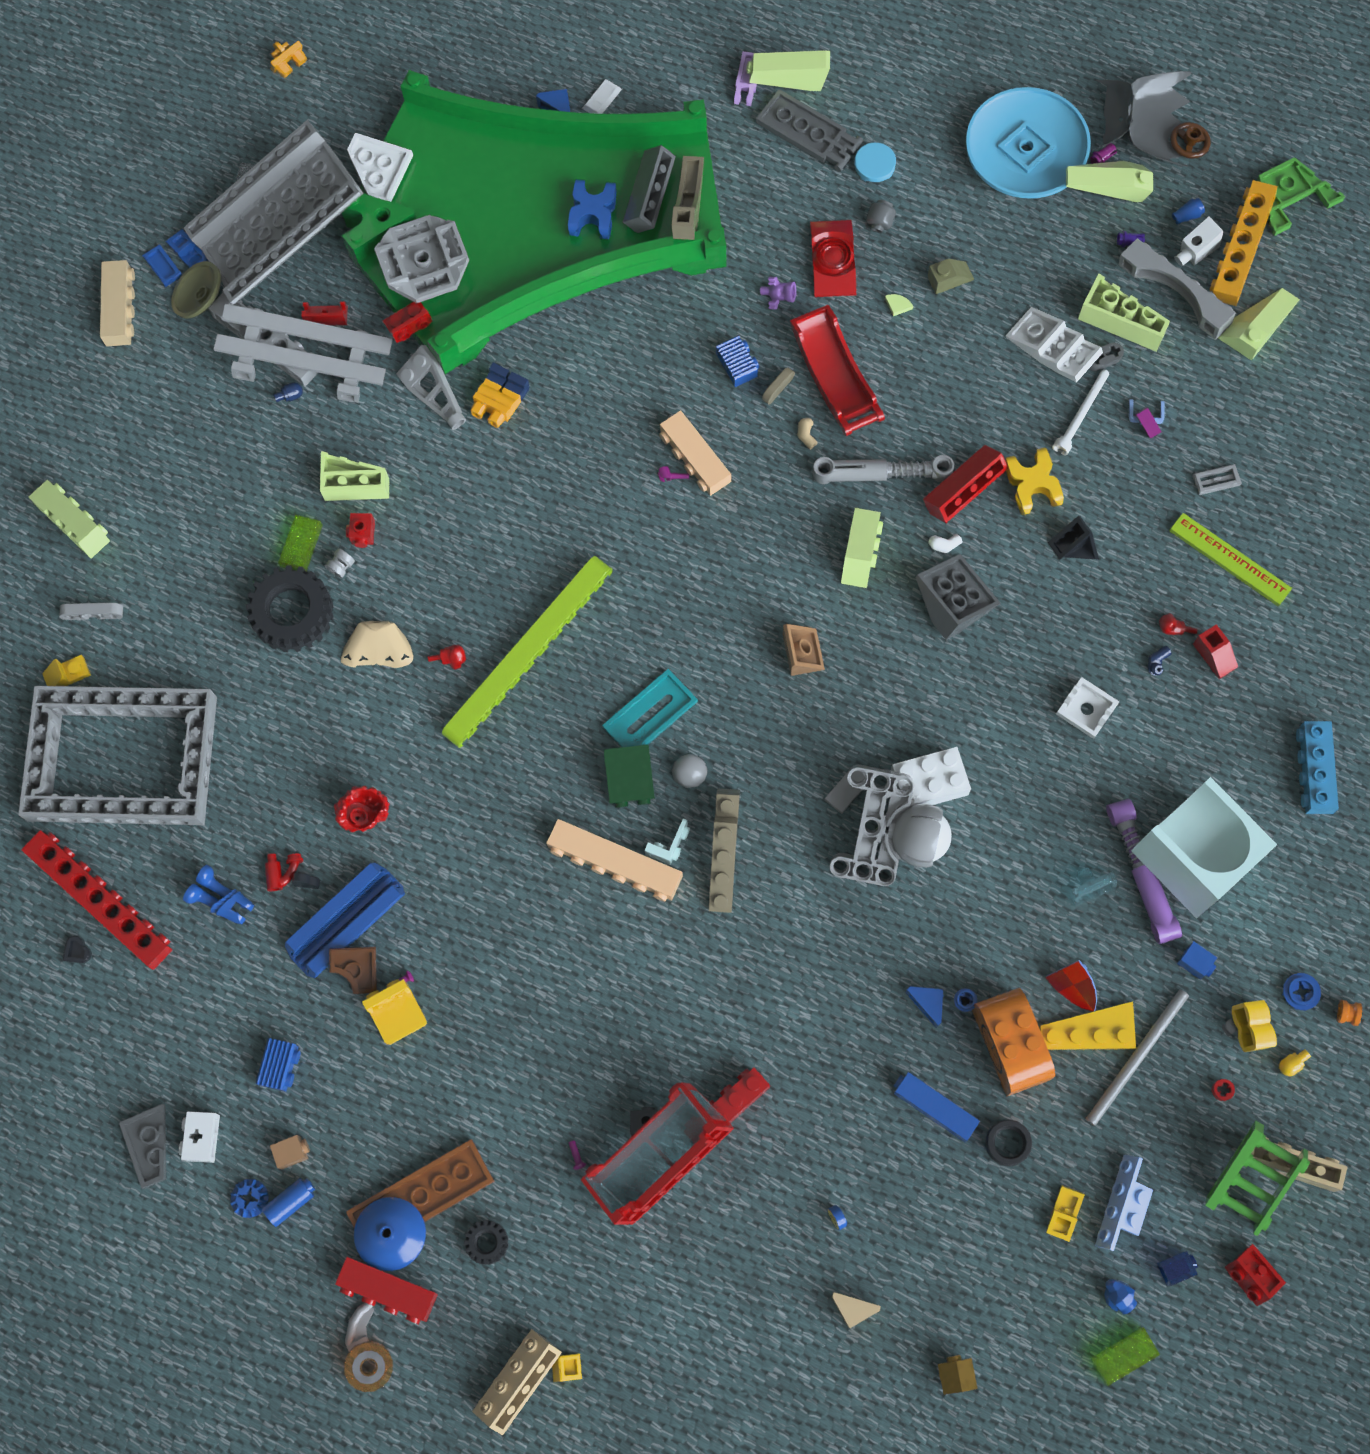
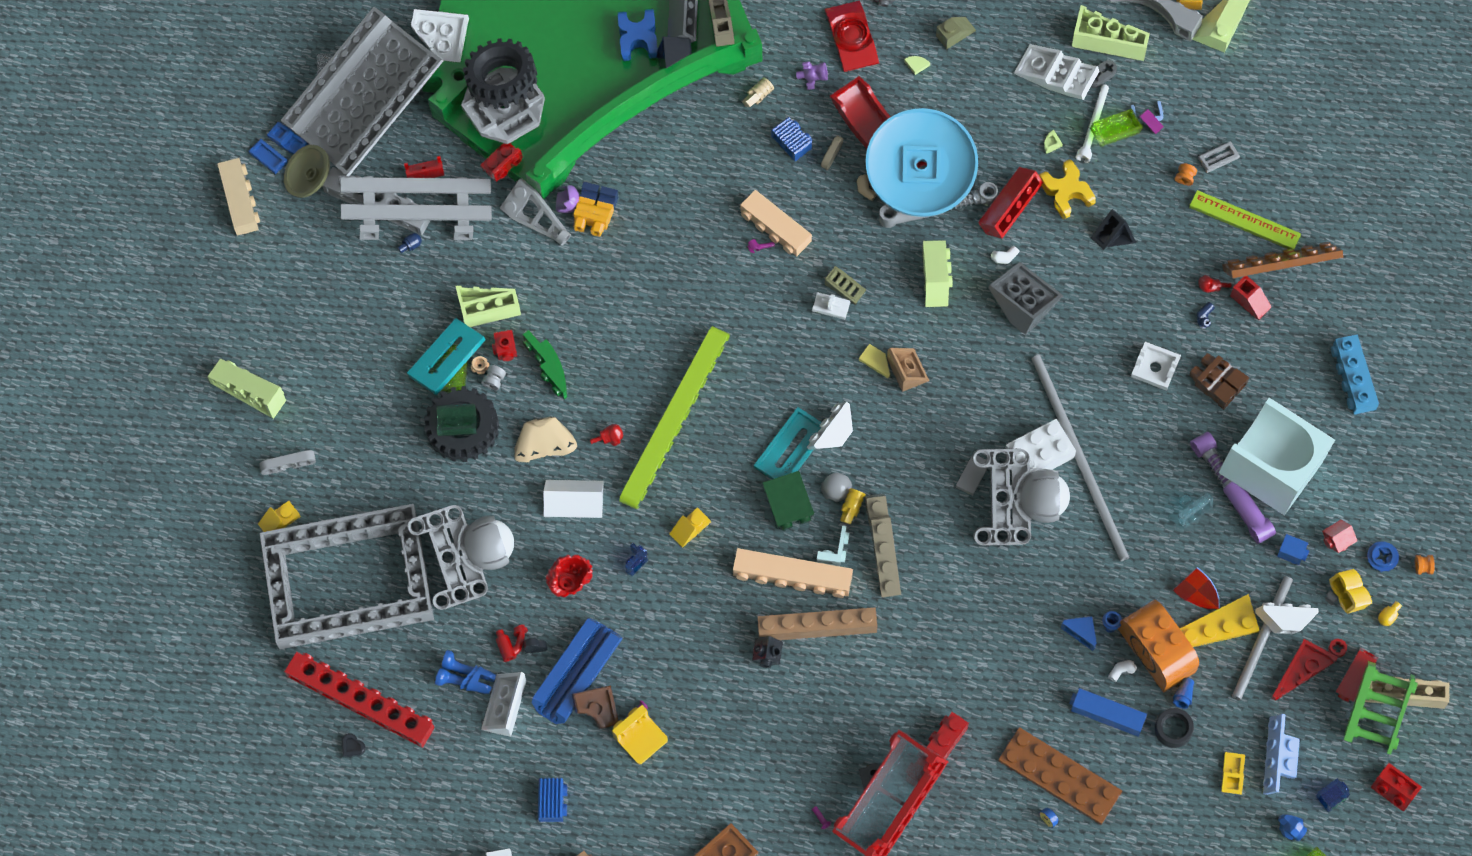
camera: 15 degrees left, 5 degrees down
(255, 940) = (504, 703): none -> white slope
(266, 754) = (483, 544): none -> light grey beam
(280, 604) = (456, 419): none -> clear green bracket
(321, 520) = (470, 343): none -> teal piece
(324, 542) = (477, 361): none -> light nougat plate
(392, 719) = (573, 498): none -> white slope
(405, 561) = (549, 363): none -> green slope
(416, 203) = (495, 56): none -> black tyre
(442, 809) = (635, 562): none -> clear blue bracket
(471, 379) = (569, 197): none -> medium lavender hair
(513, 781) = (689, 527): none -> yellow slope
(562, 947) = (767, 651): none -> black brick
(626, 233) = (673, 50): none -> black slope
(626, 927) = (818, 624): none -> medium nougat brick
(700, 796) = (852, 505): none -> yellow hinge
(701, 704) = (834, 429): none -> white slope
(713, 301) = (758, 92): none -> tan hinge
(733, 560) = (831, 305): none -> white hips
(744, 538) = (841, 290): none -> olive slope
(769, 633) = (876, 360): none -> light yellow tile
(862, 1169) = (1060, 776): none -> dark orange plate
(880, 388) = (924, 137): none -> medium azure dish
(964, 1055) = (1121, 667): none -> white arm
(975, 798) = (1080, 459): none -> light grey piece
(1029, 424) = (1052, 142): none -> yellowish green tile
(1029, 1105) = (1183, 695): none -> blue cone
(1106, 422) = (1116, 127): none -> clear neon green piece
(1147, 738) = (1211, 380): none -> reddish brown hips
(1170, 1041) = (1286, 618): none -> white slope
(1174, 492) = (1186, 174): none -> orange wheel
(1182, 1100) = (1306, 663): none -> red wing
(1235, 1129) = (1350, 684): none -> red slope
(1255, 957) = (1339, 536): none -> brick
(1266, 616) = (1287, 259): none -> dark orange plate

